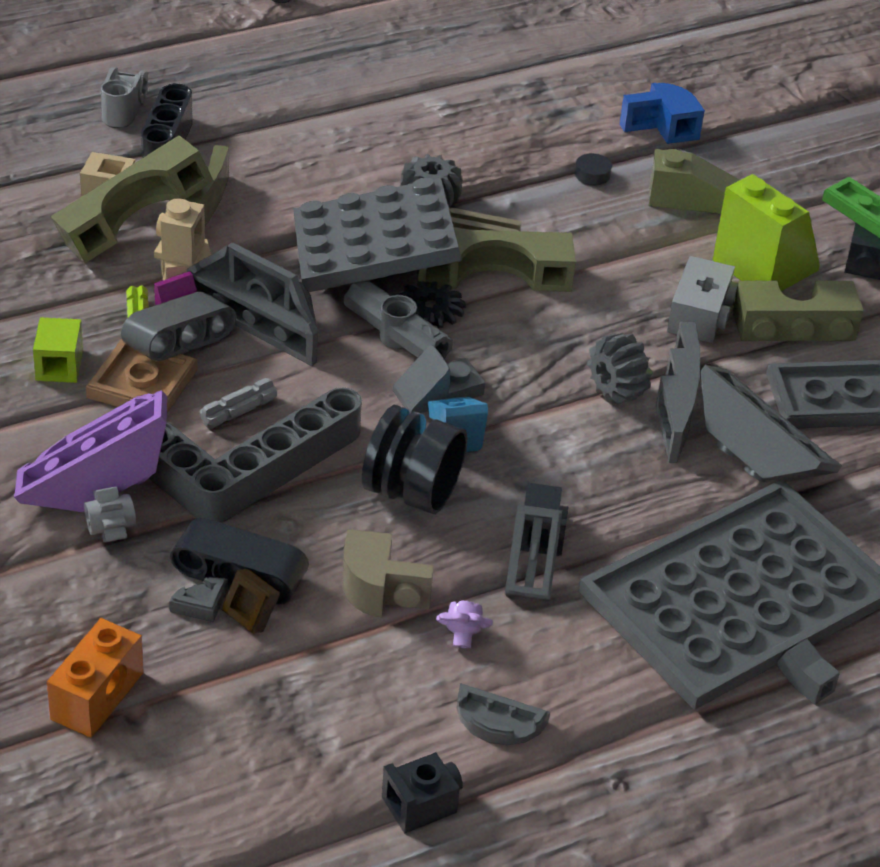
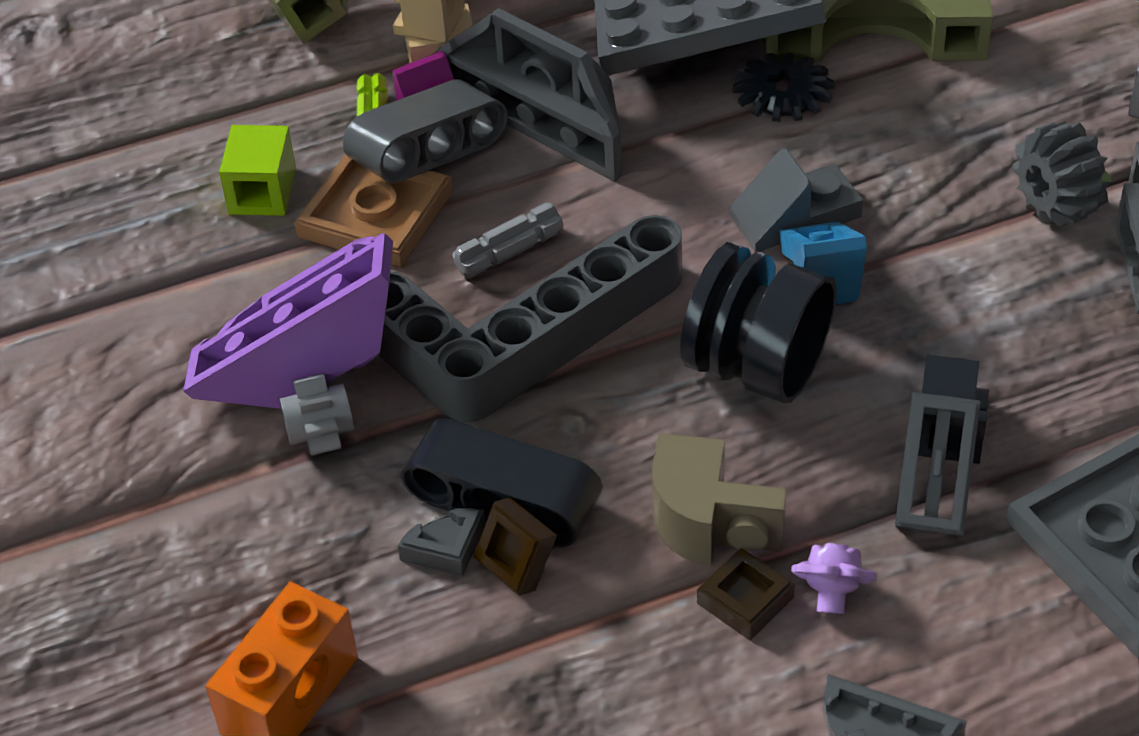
camera: 10 degrees right, 5 degrees up
(396, 319) = (734, 111): dark grey piece -> none
(405, 634) = (745, 593): none -> dark brown tile

